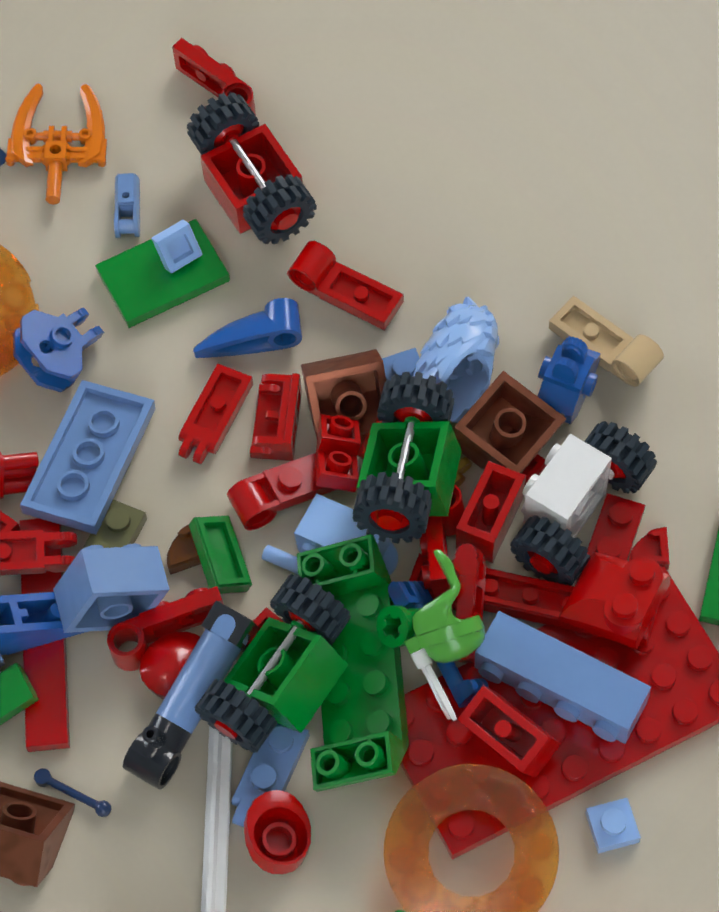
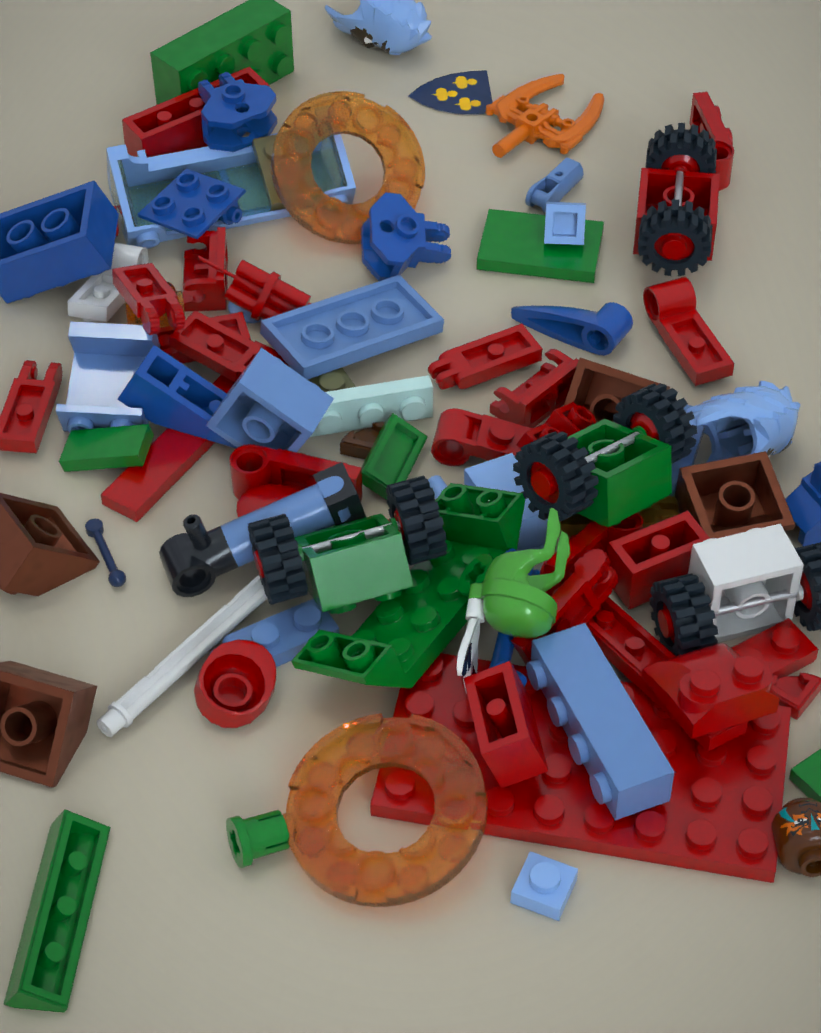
camera: 35 degrees right, 15 degrees down
(171, 513) = (373, 403): none -> light aqua plate

